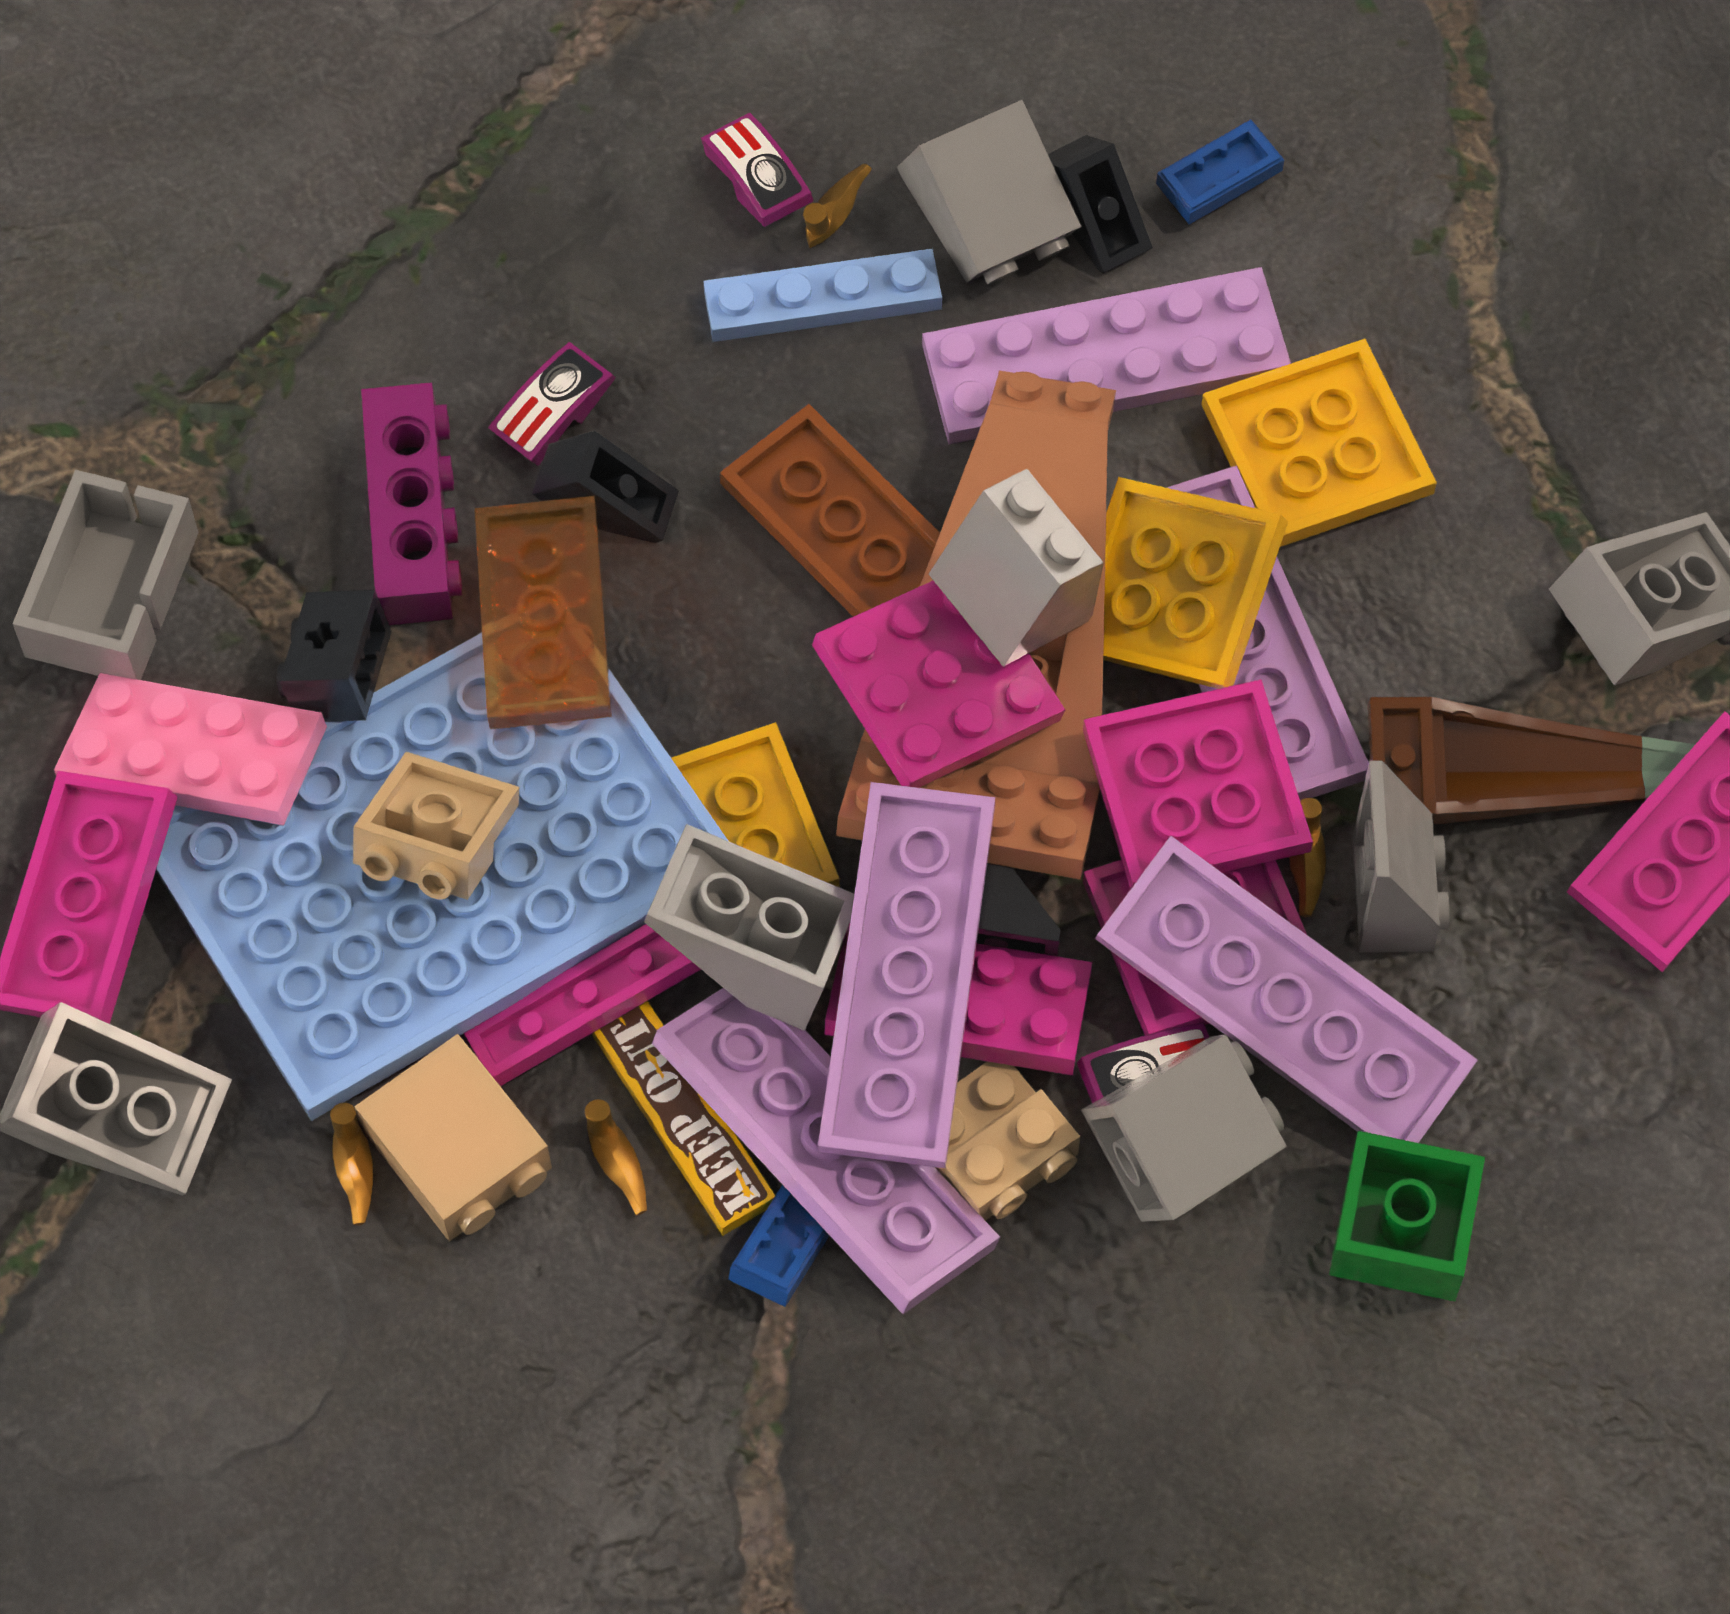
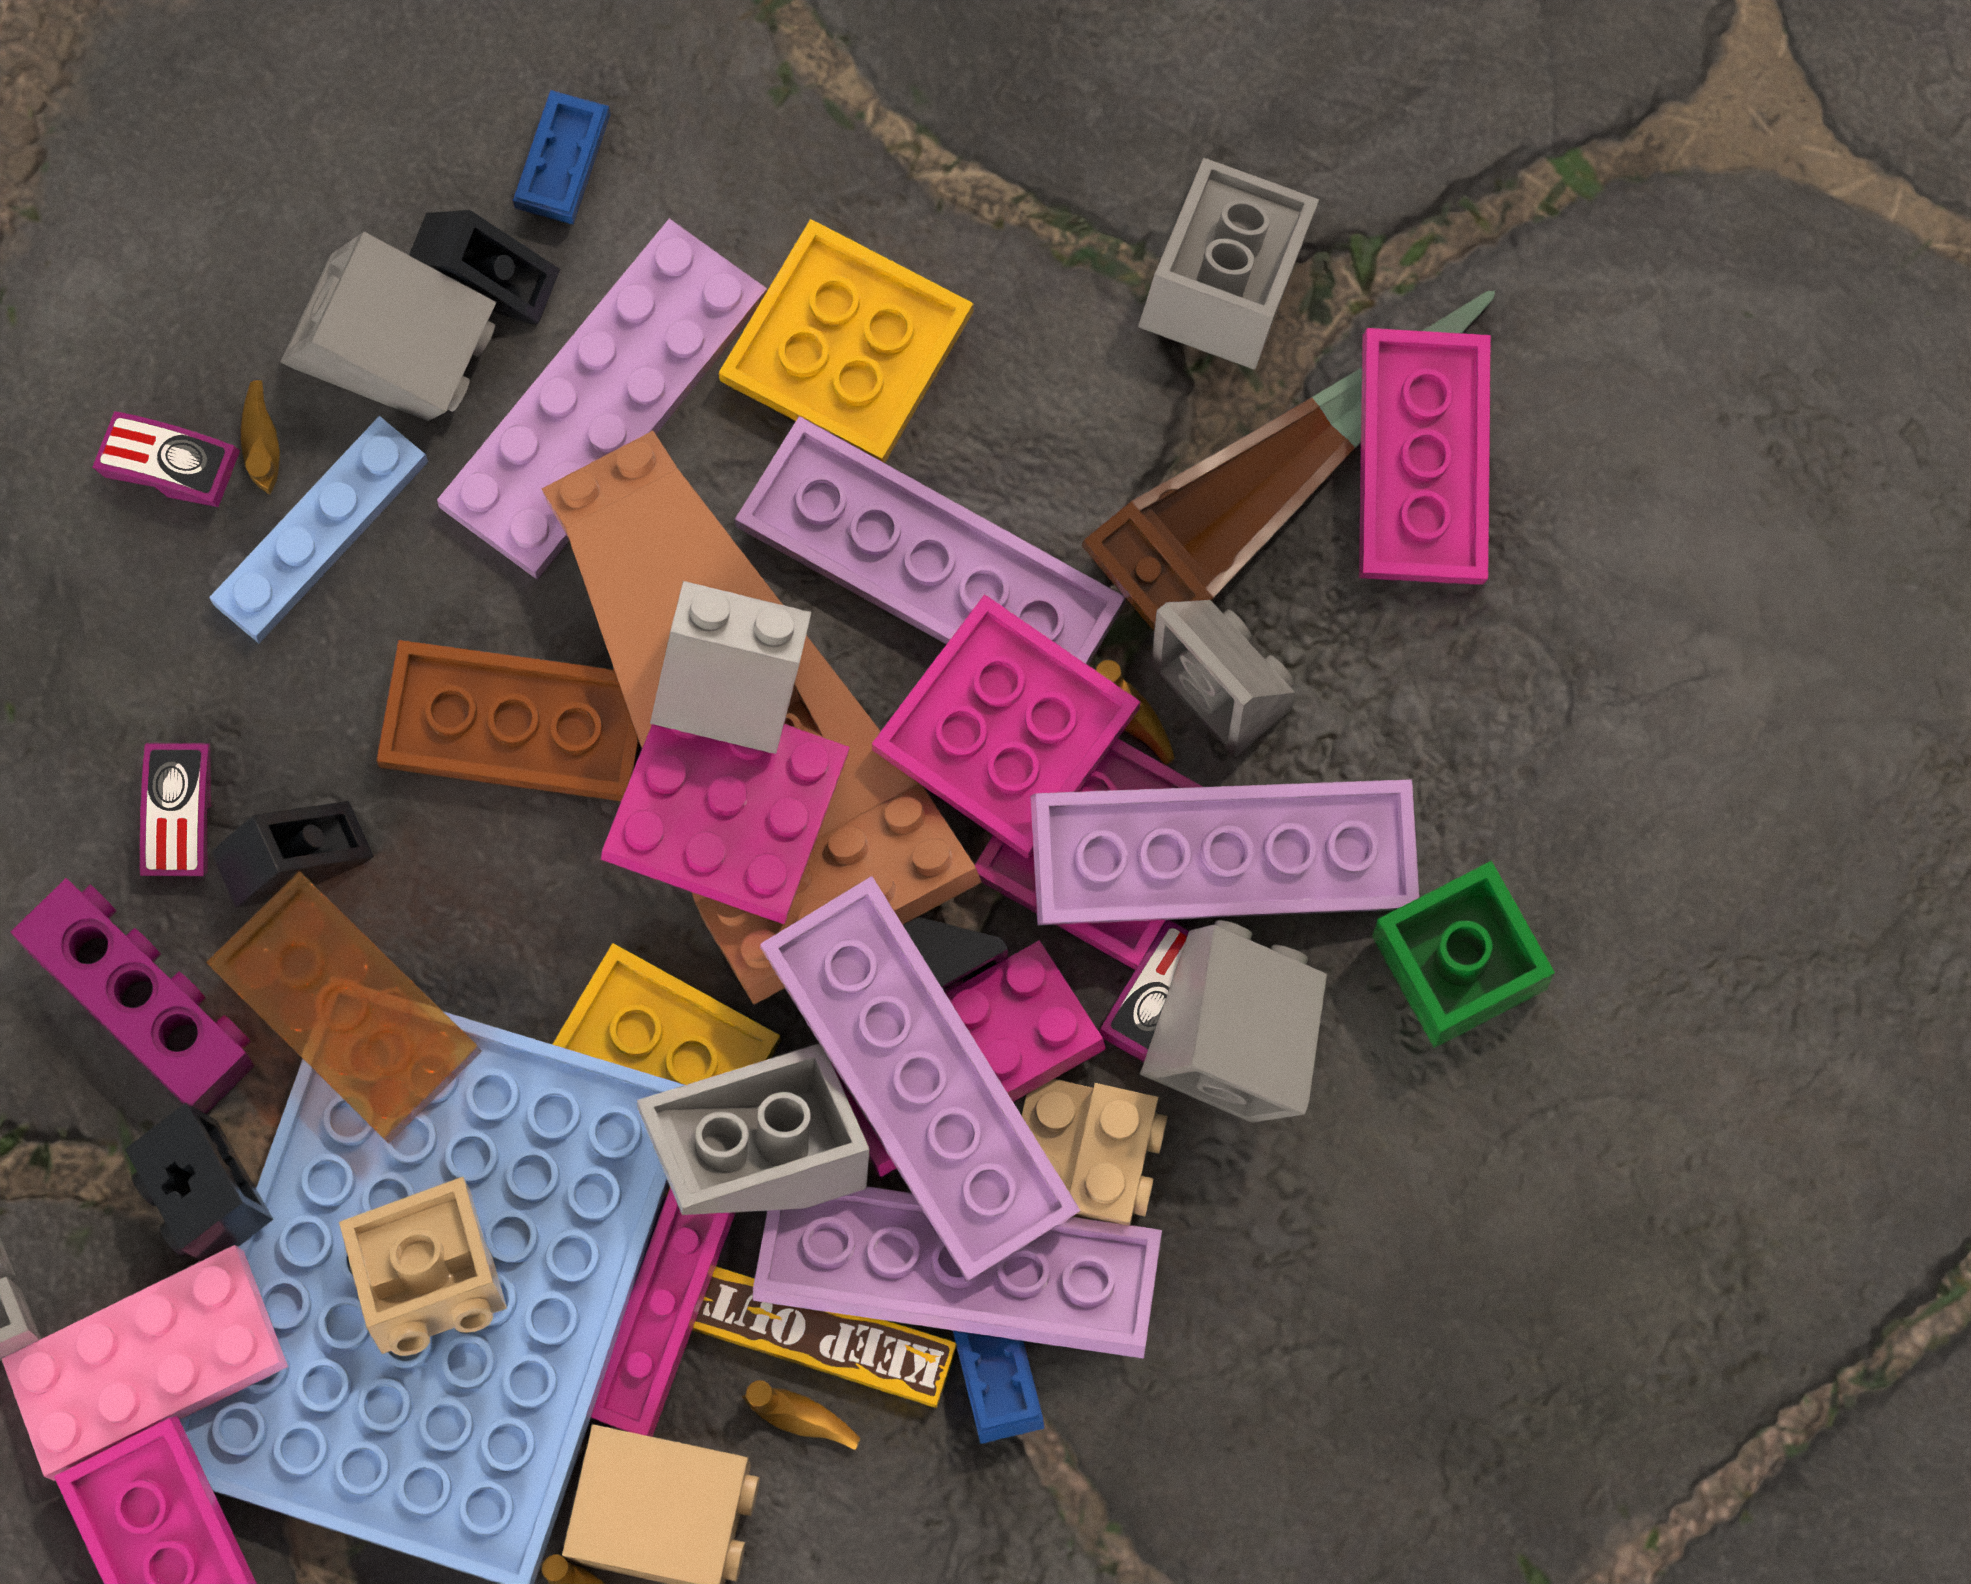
camera: 40 degrees left, 10 degrees up
(1184, 581) = (851, 553): yellow plate -> none

